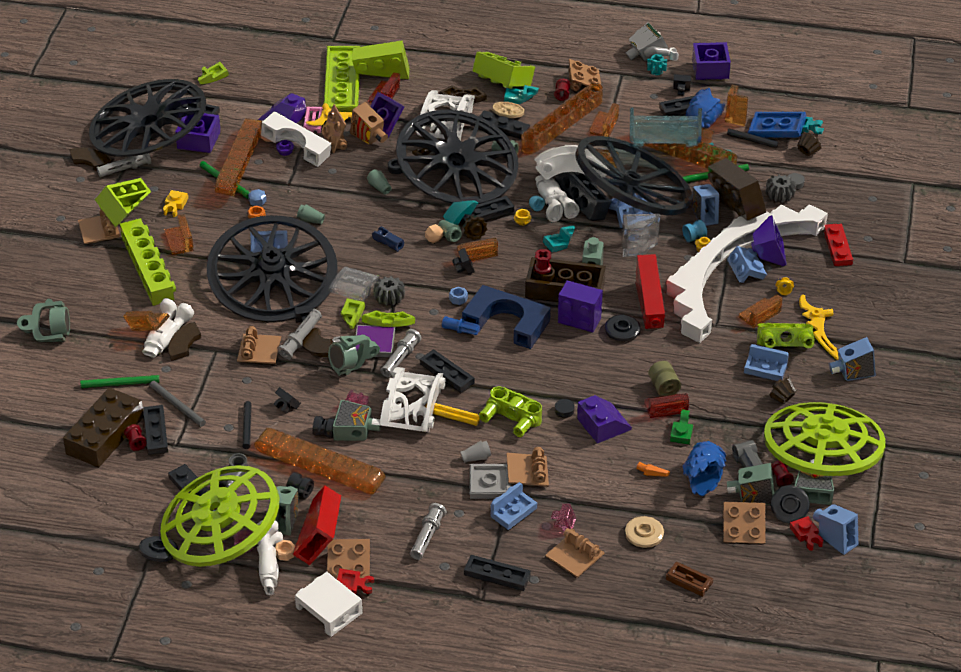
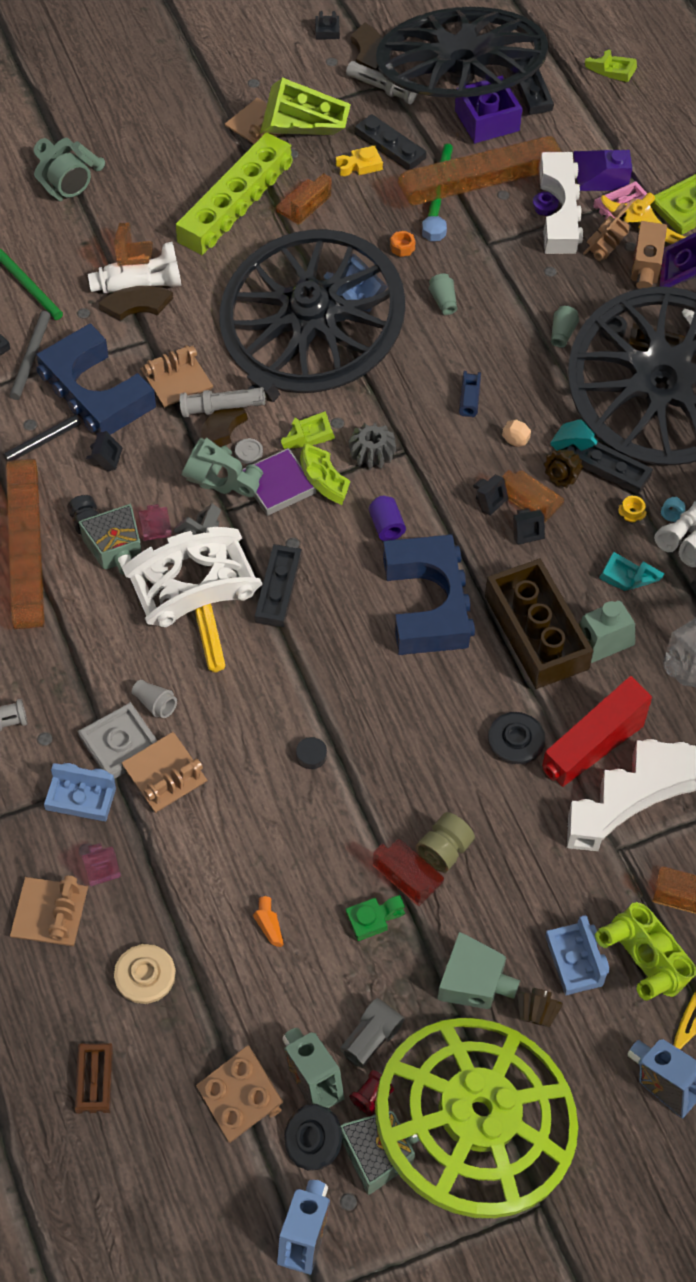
camera: 55 degrees right, 15 degrees up
(52, 166) = (327, 26): none -> black tile
(179, 183) = (390, 142): none -> black plate
(253, 388) = (100, 410): none -> dark blue arch
(353, 283) = (359, 402): clear slope -> none
(378, 381) = (205, 519): none -> dark grey bracket
(405, 347) = (285, 518): light grey pin -> none
(442, 307) = (387, 518): none -> dark purple brick
(450, 231) = (537, 446): sand green cone -> none
(458, 295) = (426, 521): medium blue tile -> none
(460, 325) = (371, 554): blue axle -> none
(499, 258) = (528, 526): none -> black tile
(513, 406) = (265, 696): lime piece -> none
(542, 261) = (532, 575): dark red bush -> none
(580, 306) = (498, 665): dark purple brick -> none
(601, 418) = (319, 808): dark purple slope -> none
(704, 467) = (299, 983): blue head -> none
(746, 405) = (475, 975): none -> sand green torso
(806, 530) = (282, 1185): red plate -> none

